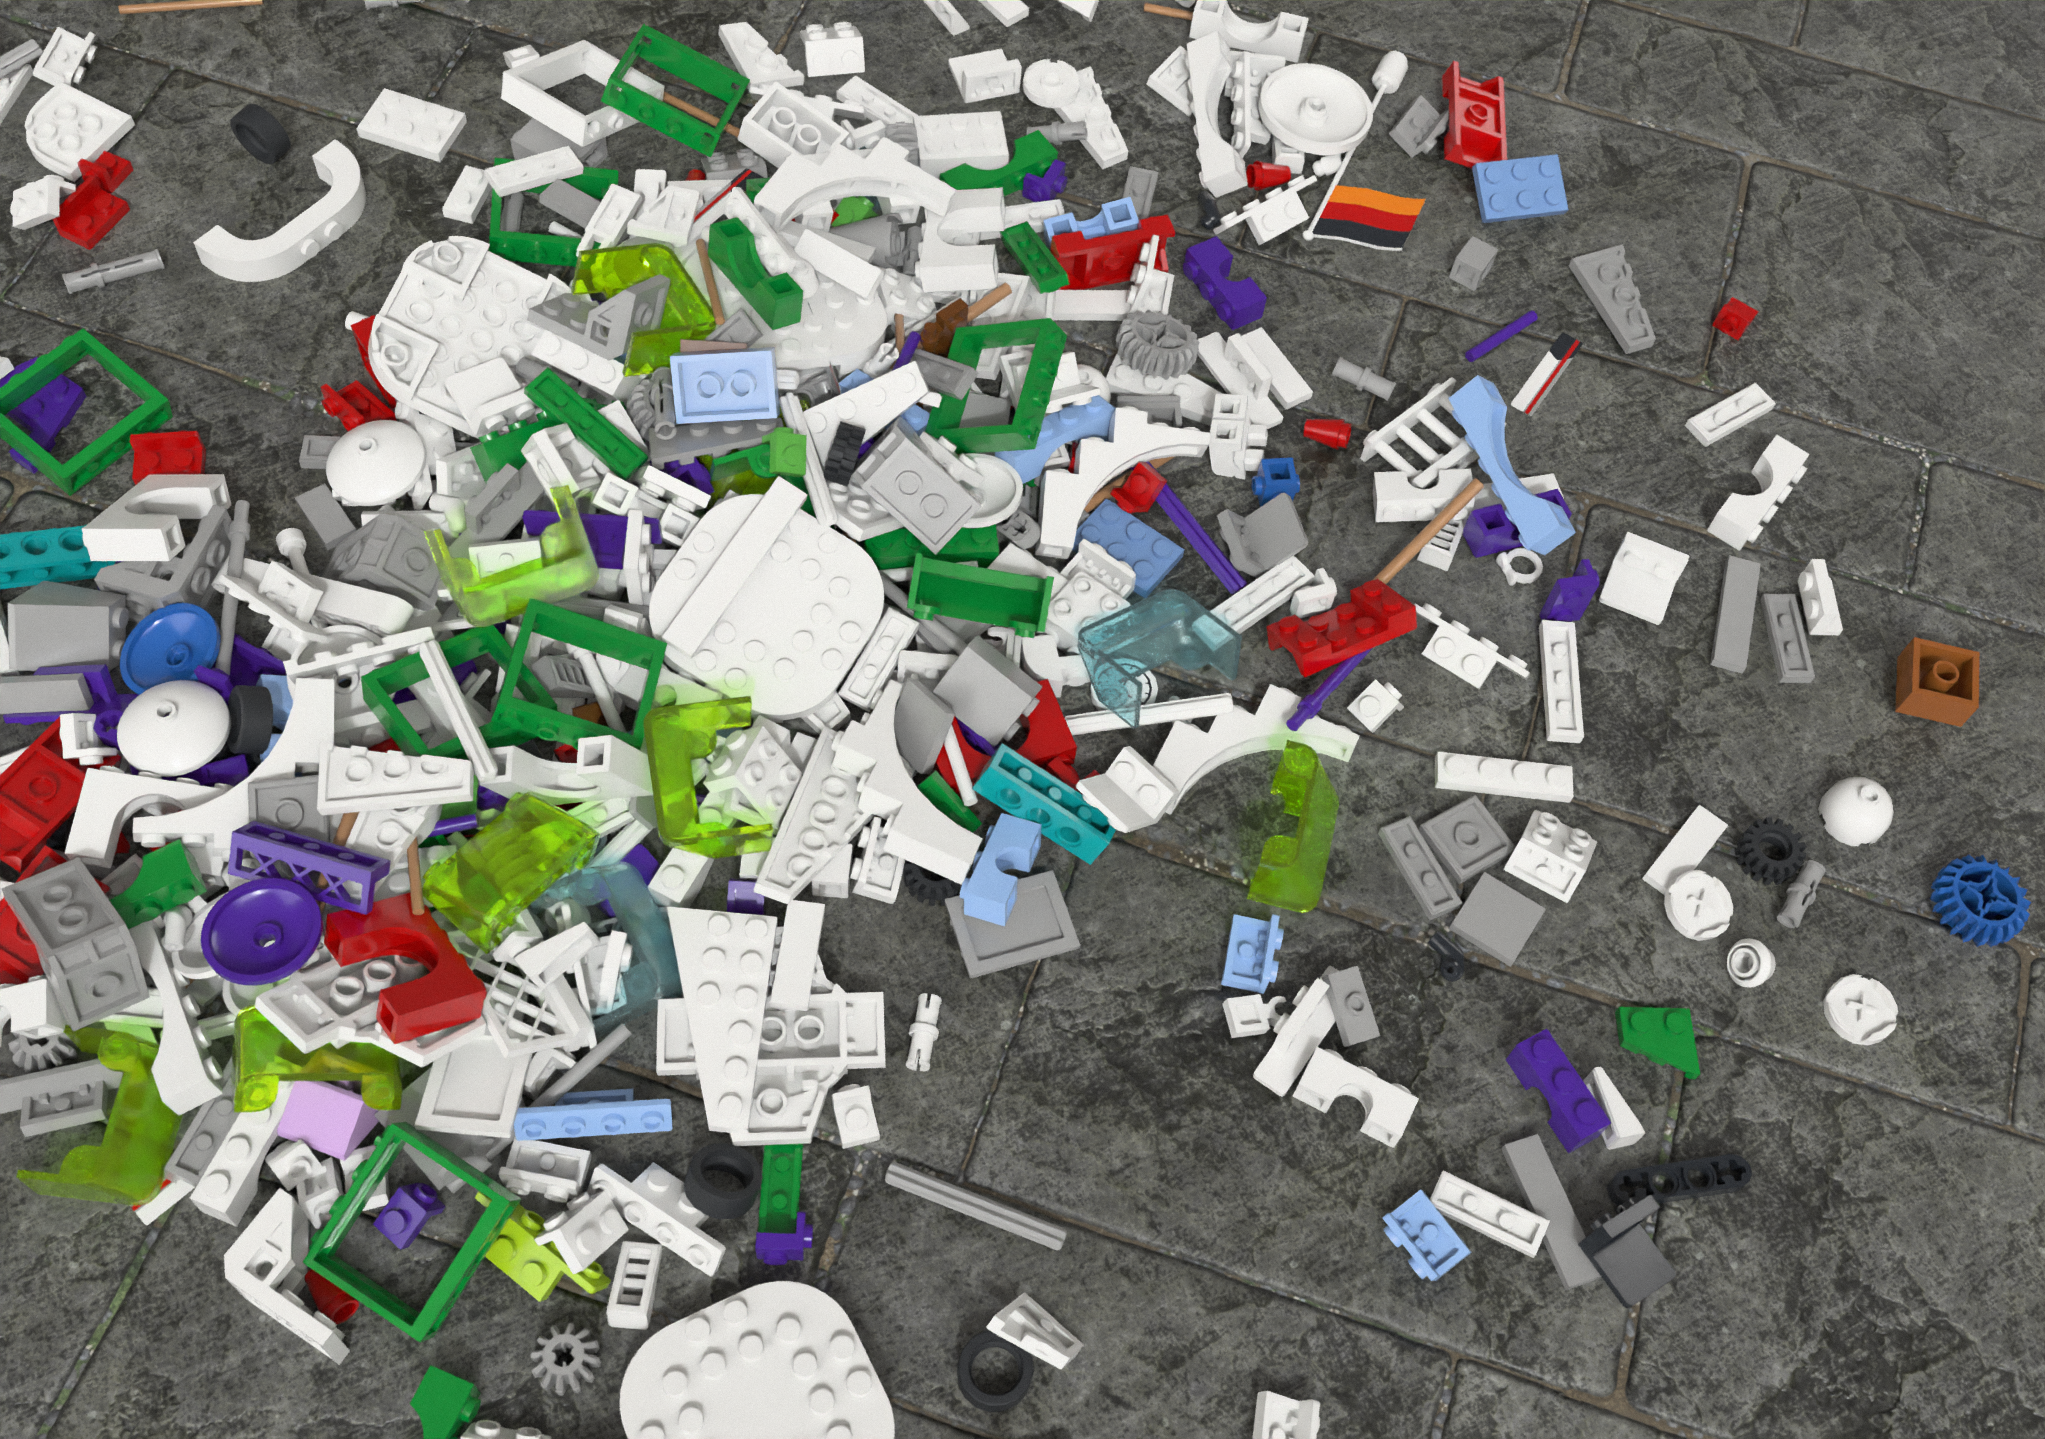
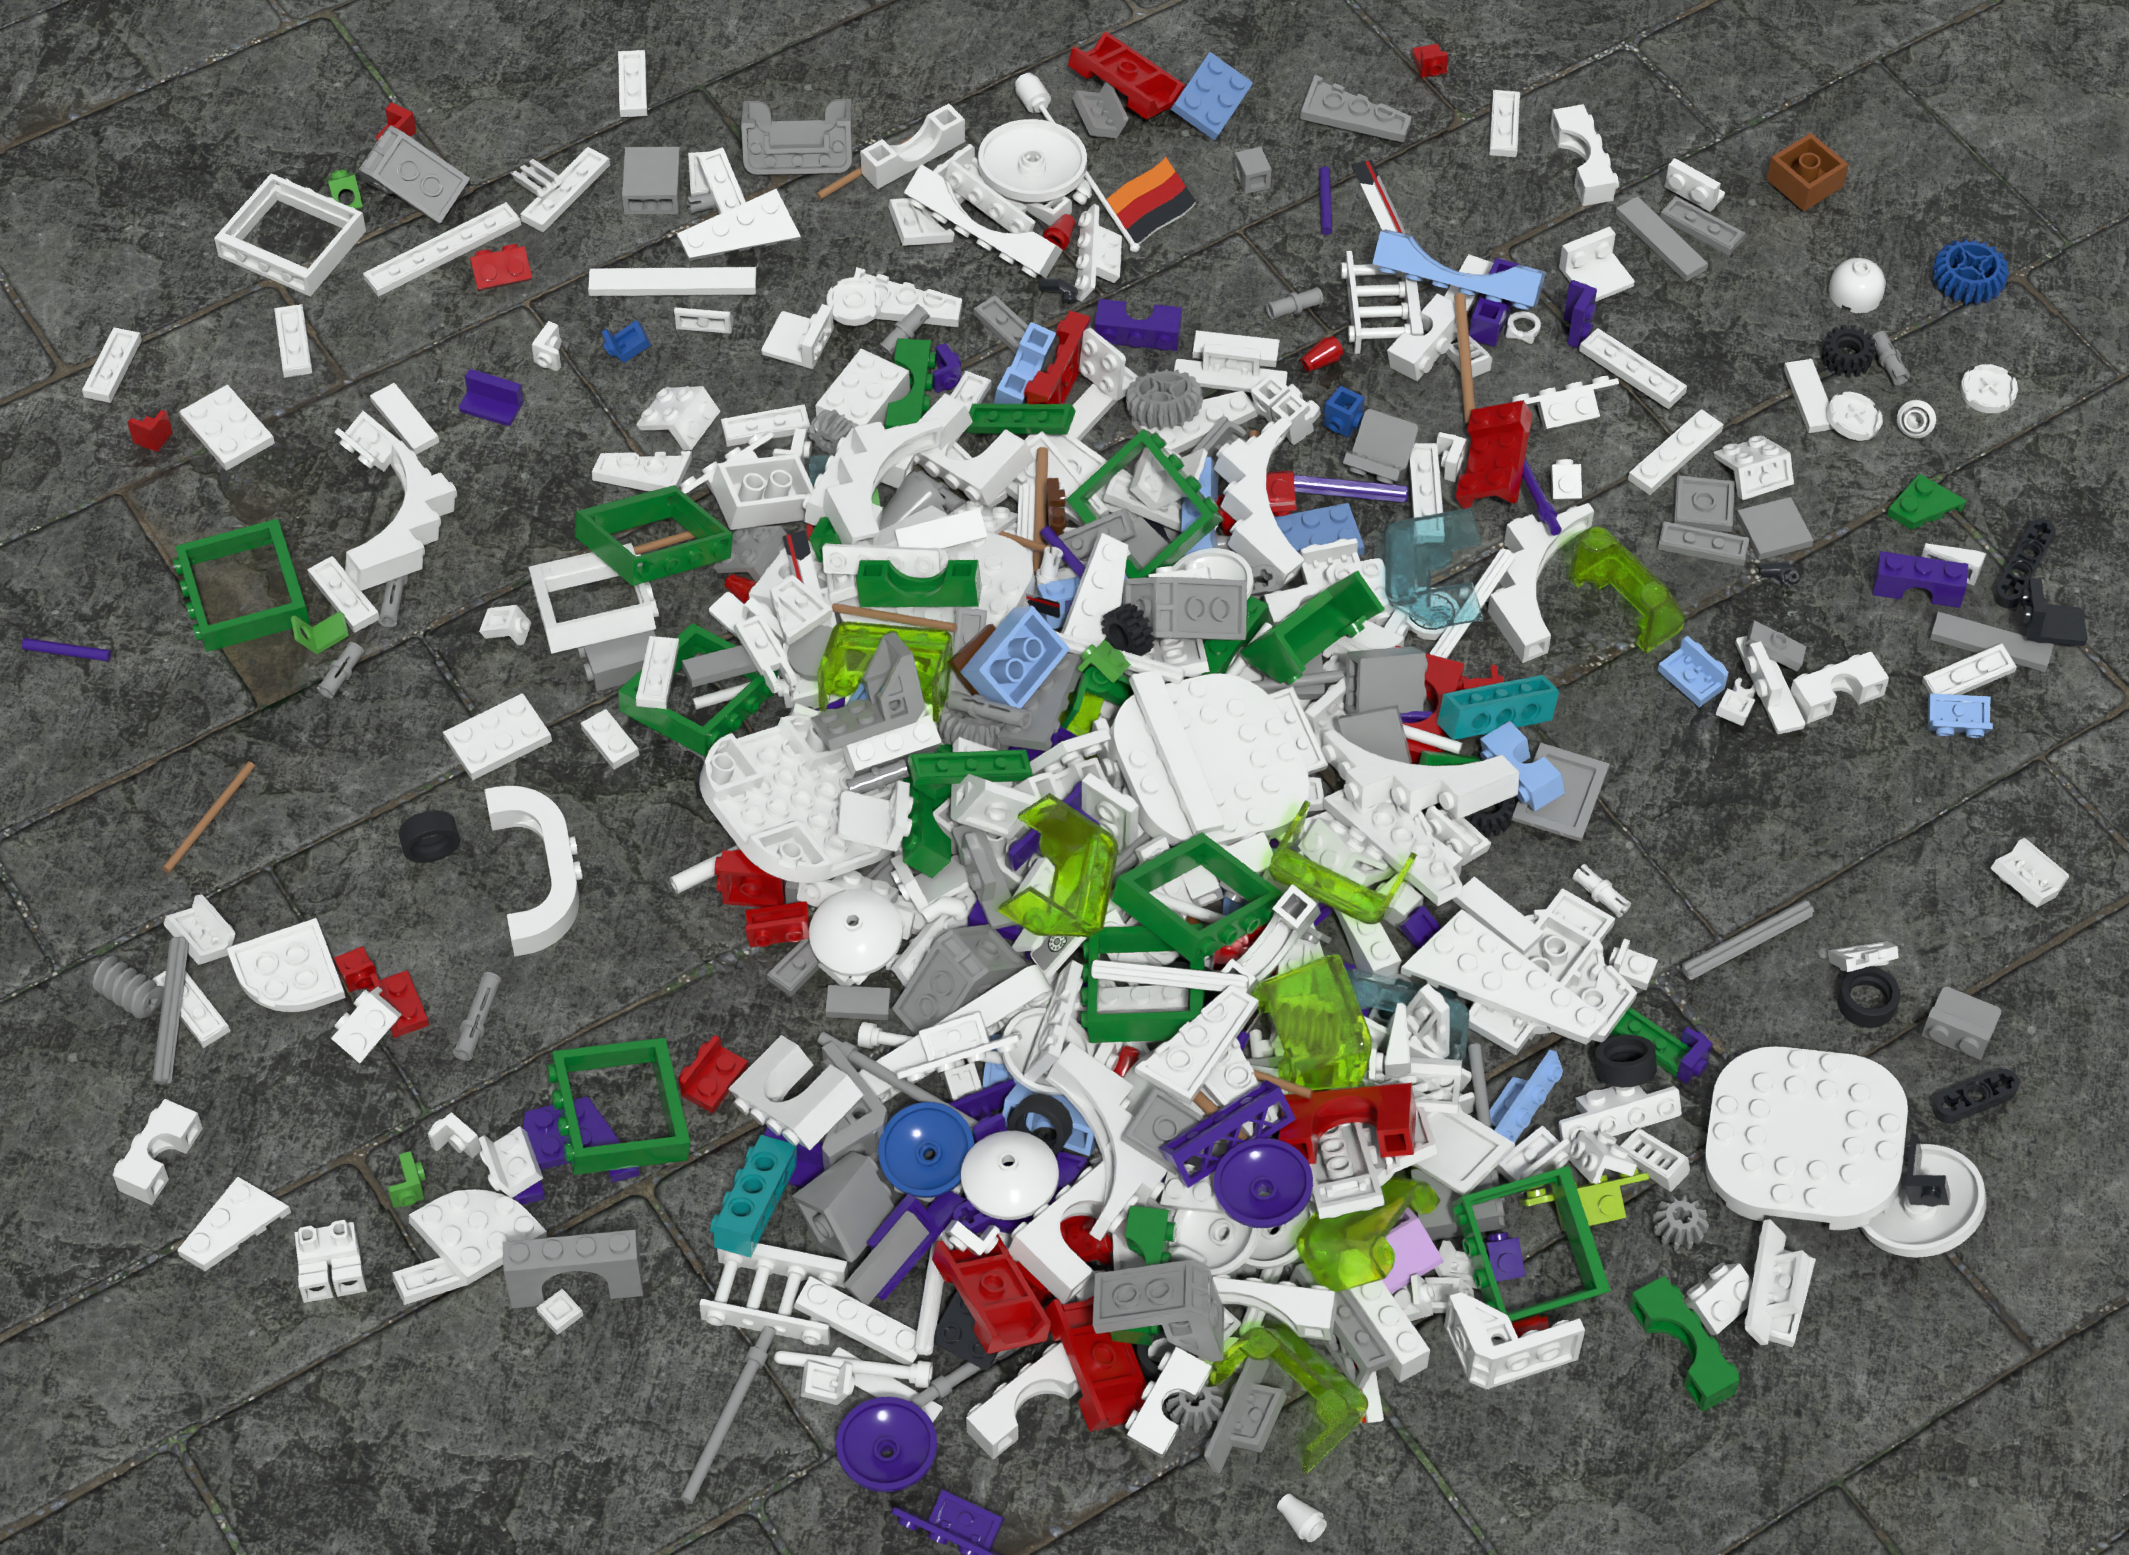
camera: 45 degrees left, 5 degrees down
(1129, 792) = (1528, 653): white bracket -> none

